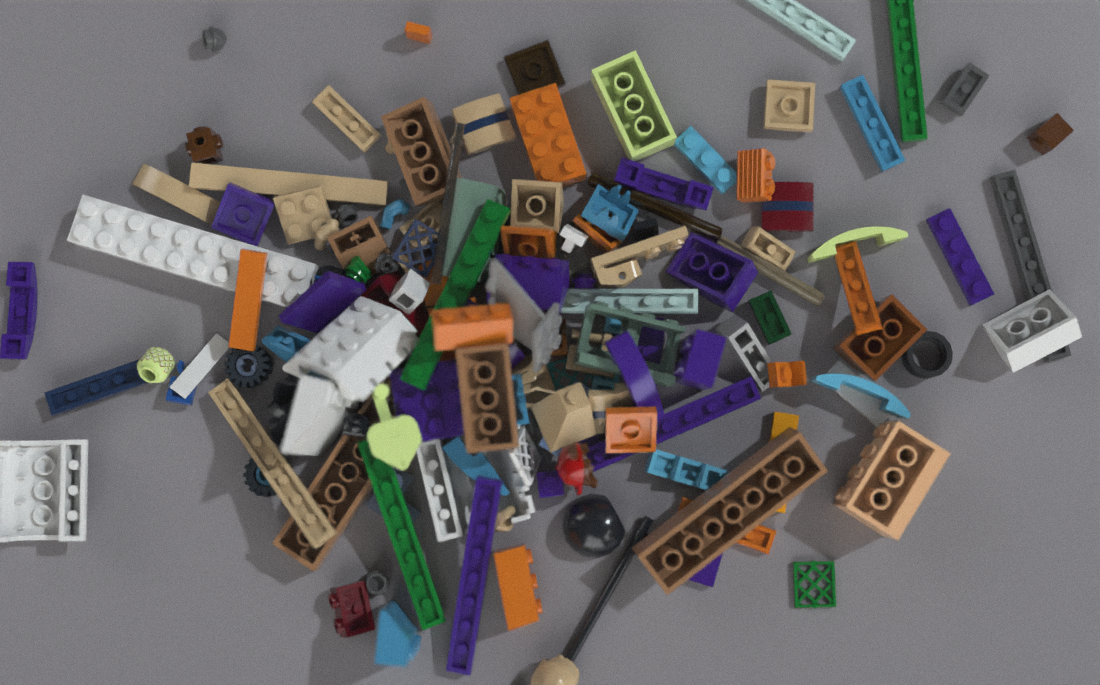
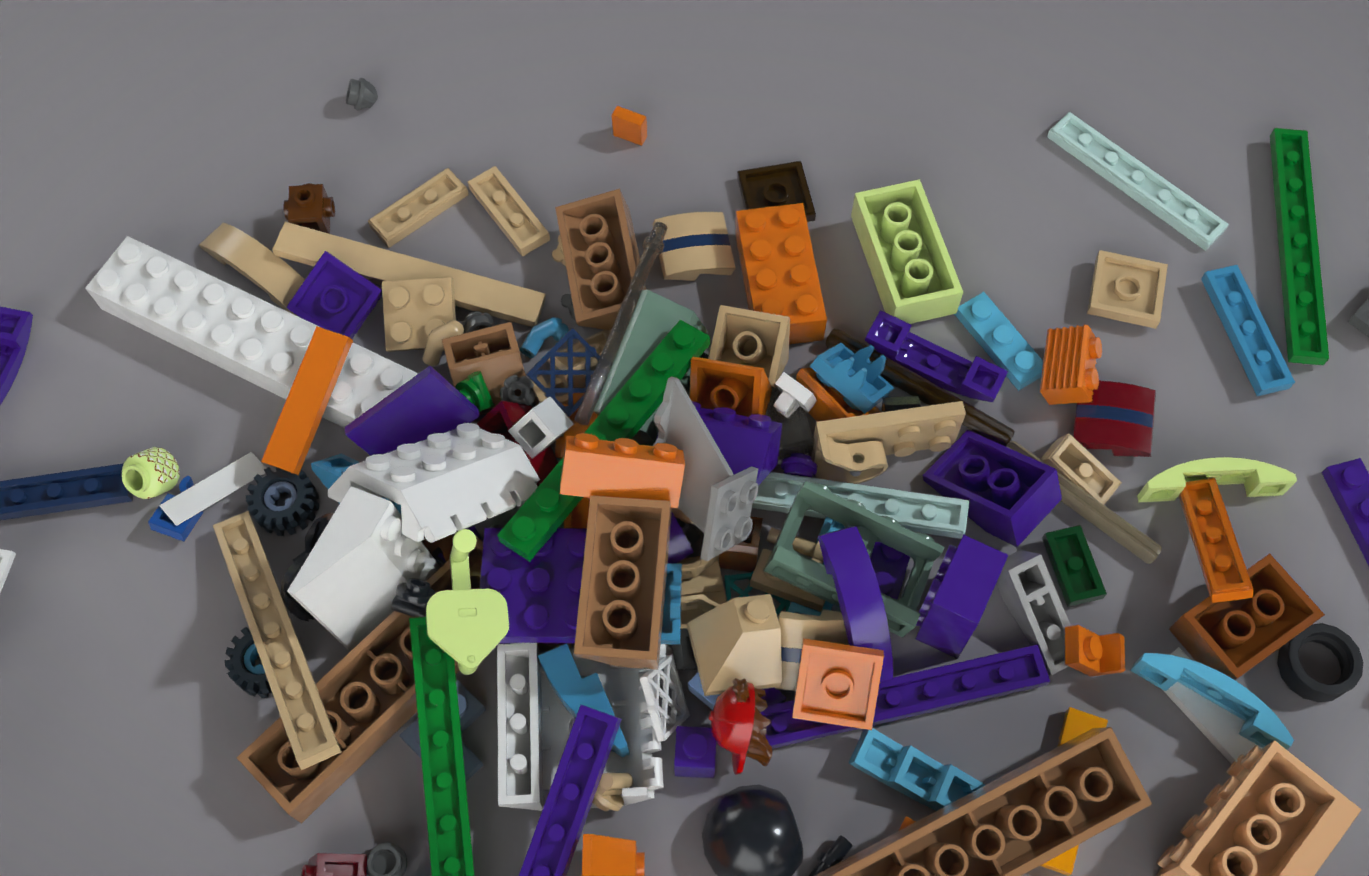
camera: 10 degrees right, 20 degrees down
(280, 126) = (418, 207): none -> tan tile

